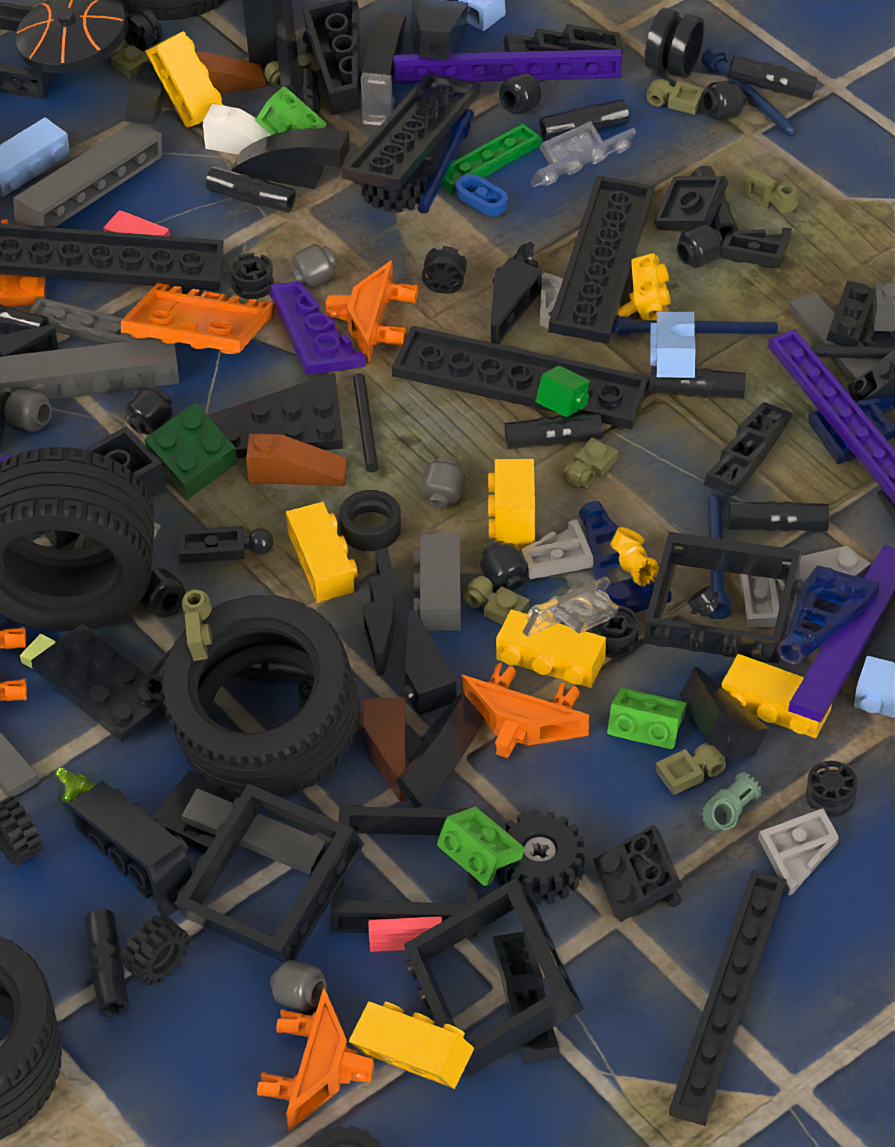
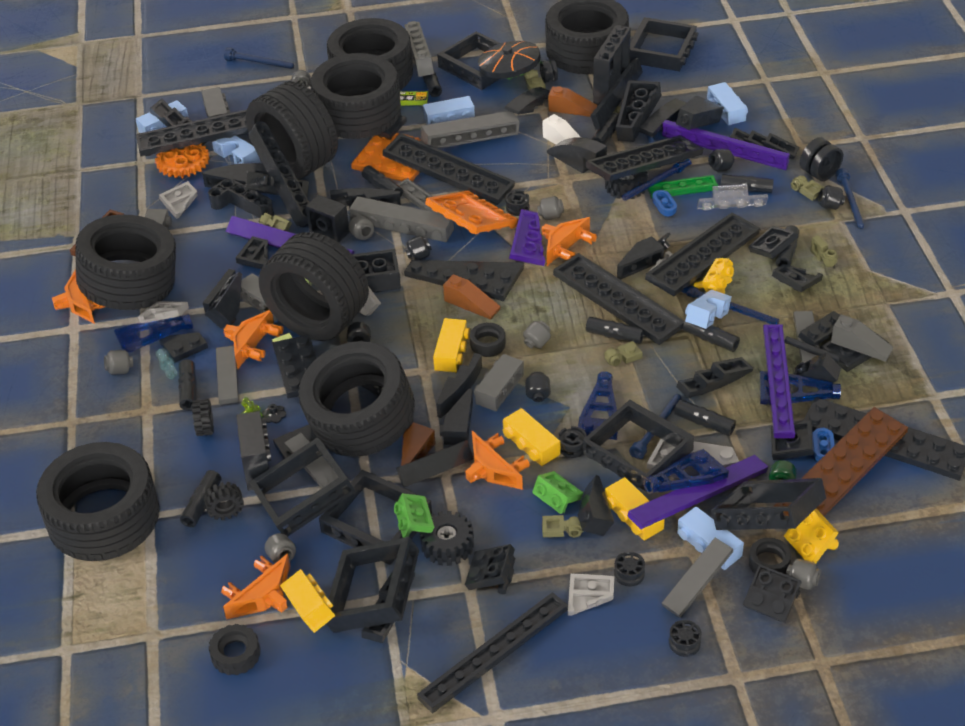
camera: 30 degrees right, 5 degrees down
(114, 774) = (274, 413): none -> black plant
(127, 223) = (477, 159): coral tile -> none
(184, 78) = (547, 95): yellow brick -> none
(192, 450) = (419, 272): dark green brick -> none
(196, 609) = (332, 349): olive plate -> none
(221, 543) = (406, 323): black plate -> none
(250, 189) = (547, 162): black axle -> none
(287, 113) = (587, 128): bright green bracket -> none
(365, 422) = (524, 289): black bar -> none
(376, 98) = (640, 134): clear tile -> none
(394, 933) = (343, 542): coral tile -> none
(444, 269) = (615, 231): black wheel -> none
(496, 604) = (517, 395): olive plate -> none
(513, 502) = (561, 357): yellow brick -> none
(558, 553) = (571, 391): light grey wing -> none
(563, 391) = (628, 310): green brick -> none
(577, 608) = (549, 419): clear bracket -> none
(633, 556) = (605, 404): yellow connector -> none
(699, 246) = (762, 265): black head -> none
(704, 601) = (618, 440): black plate -> none
(731, 802) = (567, 552): sand green connector -> none
(772, 77) = (866, 194): black axle -> none

